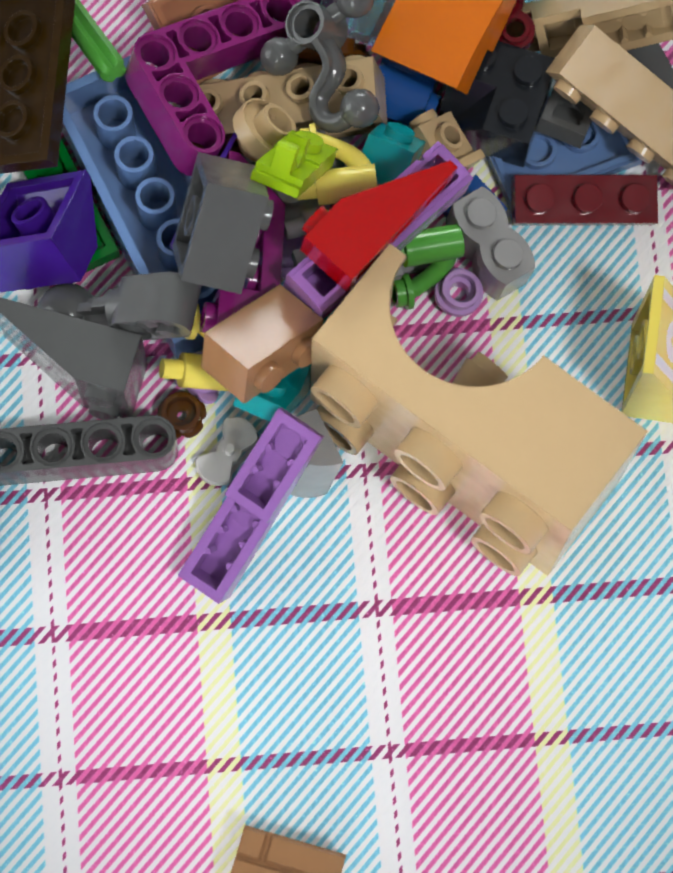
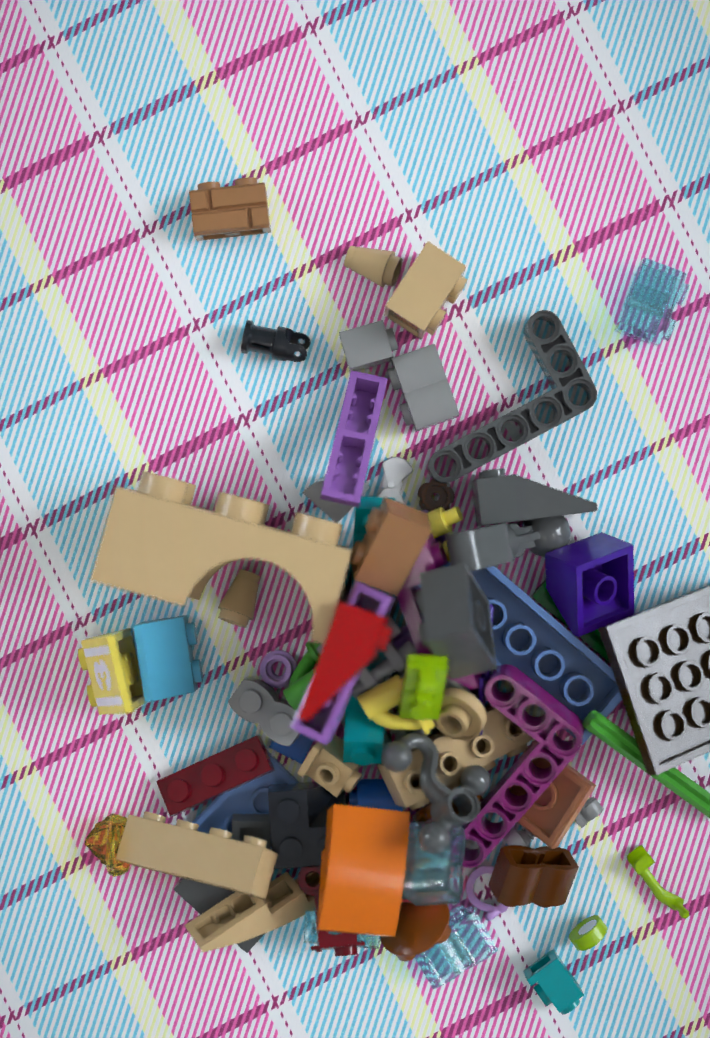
camera: 160 degrees right, 15 degrees up
(83, 656) = (425, 290): none -> tan piece
(132, 728) = (374, 264): none -> tan cone
(138, 547) = (423, 387): none -> light grey brick
(184, 627) = (368, 345): none -> light grey brick
(299, 681) = (278, 342): none -> black piece
(593, 339) = (167, 657): none -> medium azure slope

